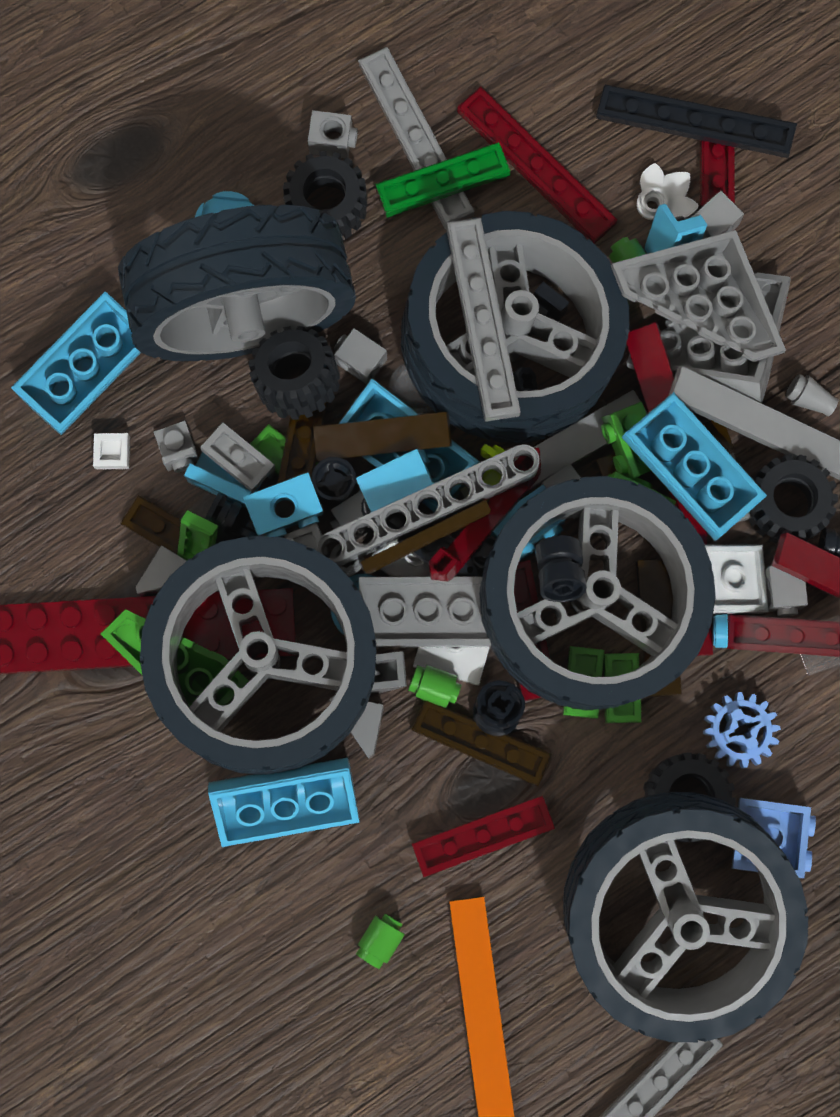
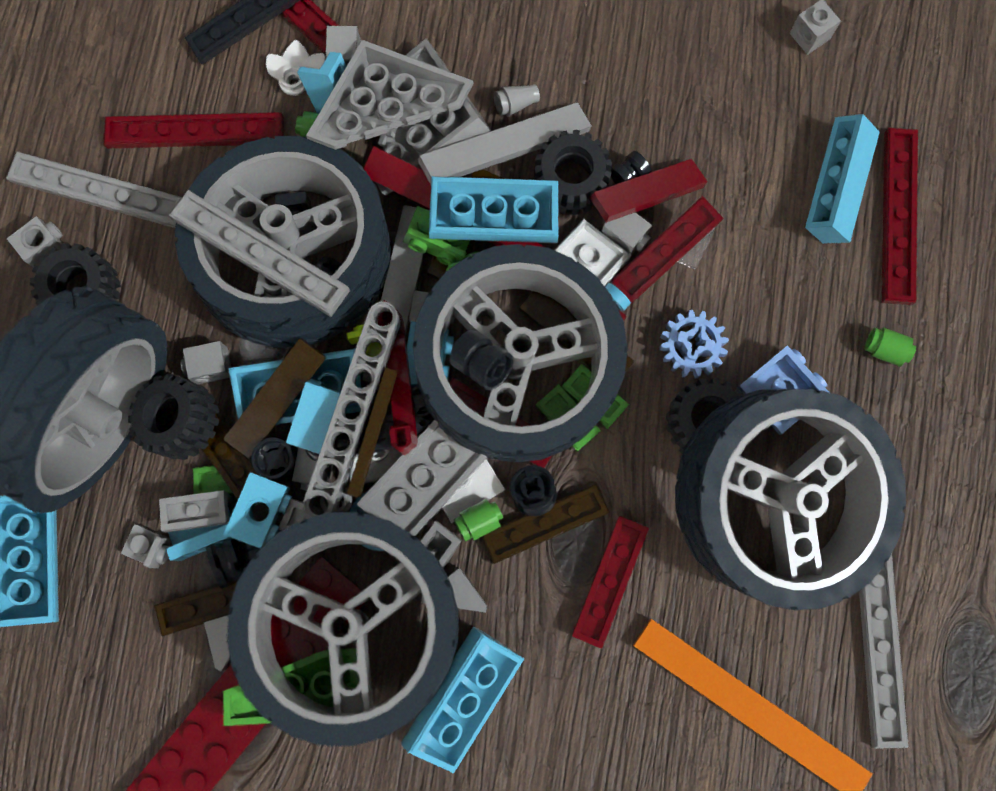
camera: 45 degrees left, 0 degrees up
(111, 451) = (105, 595): white plate -> none
(195, 535) = (217, 591): bright green plate -> none
(380, 940) = (618, 719): bright green brick -> none
(442, 179) = (142, 198): green tile -> none

